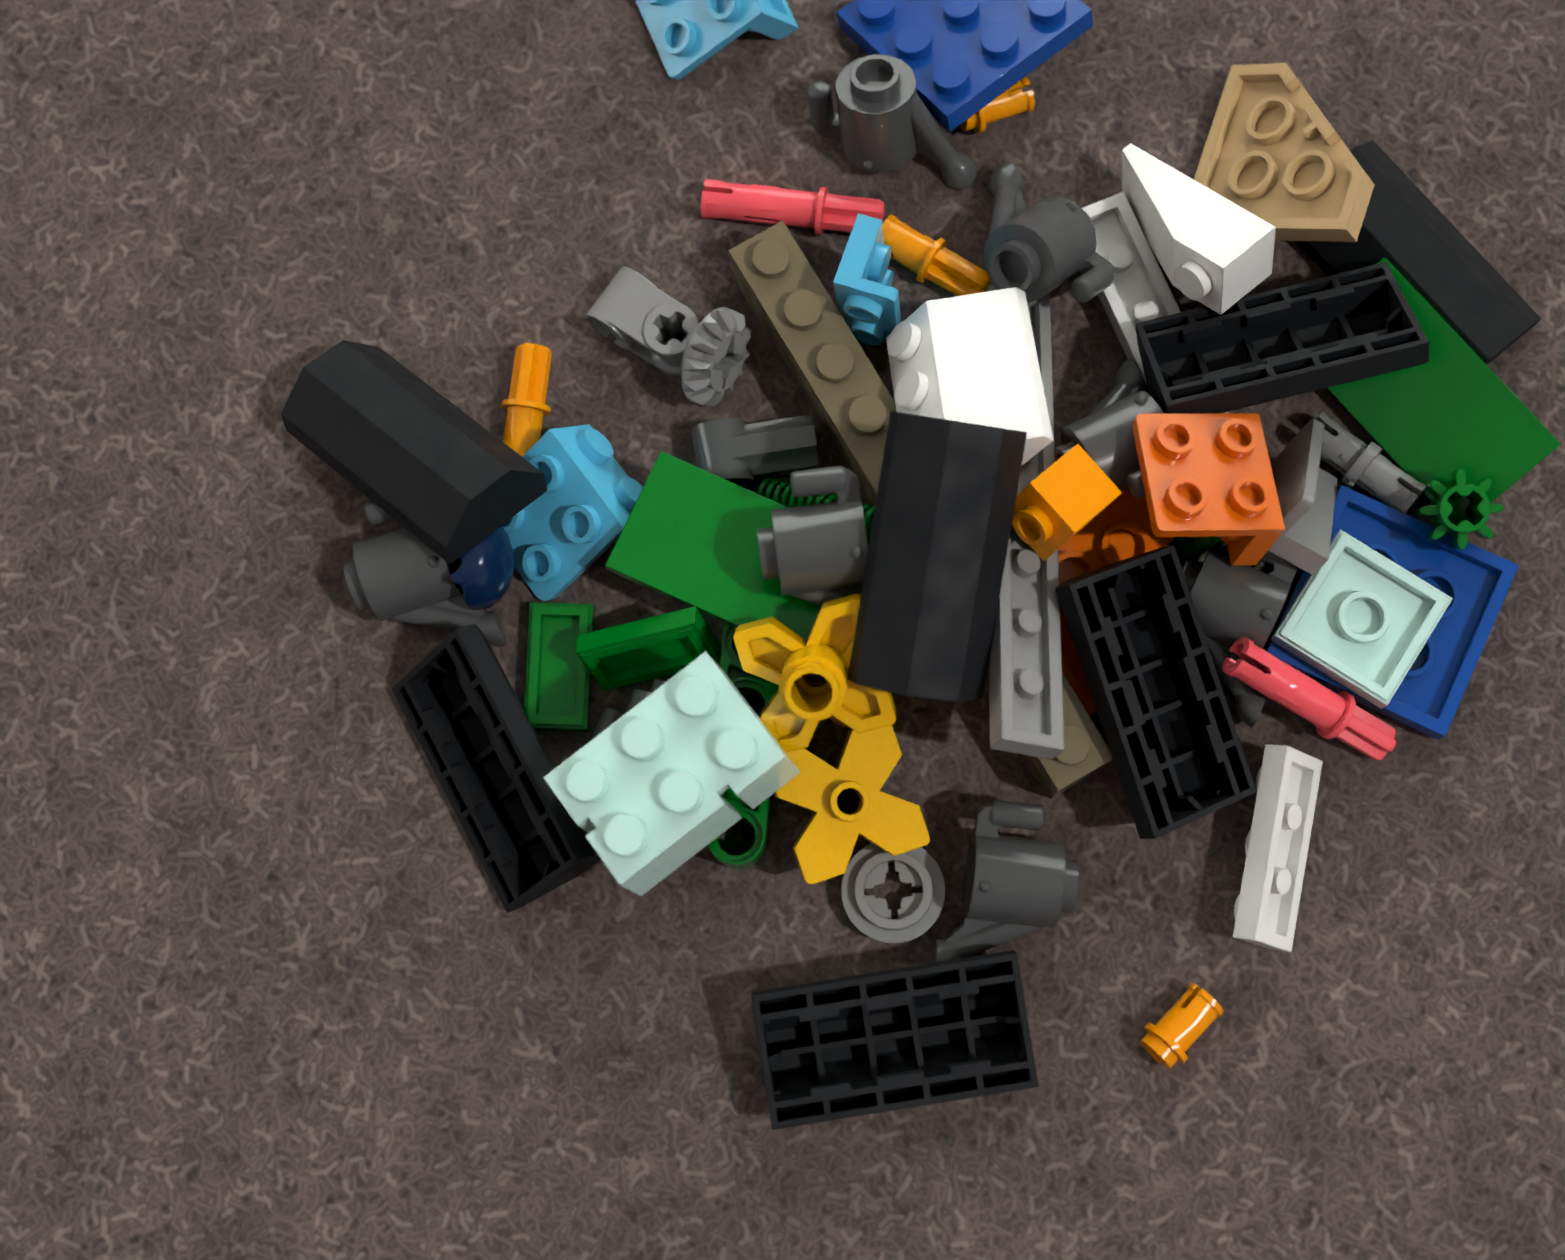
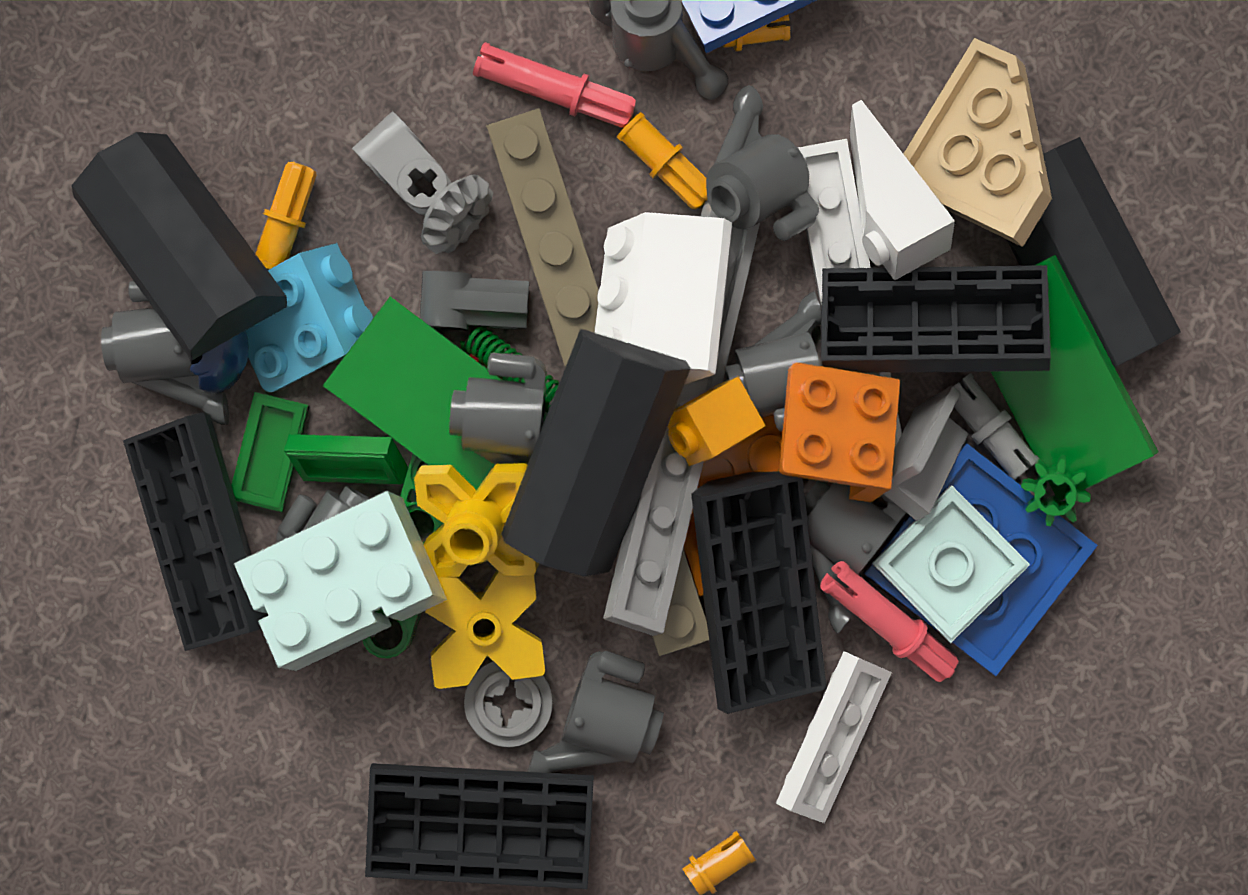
camera: 10 degrees right, 10 degrees up
(865, 283) = (598, 173): medium azure bracket -> none

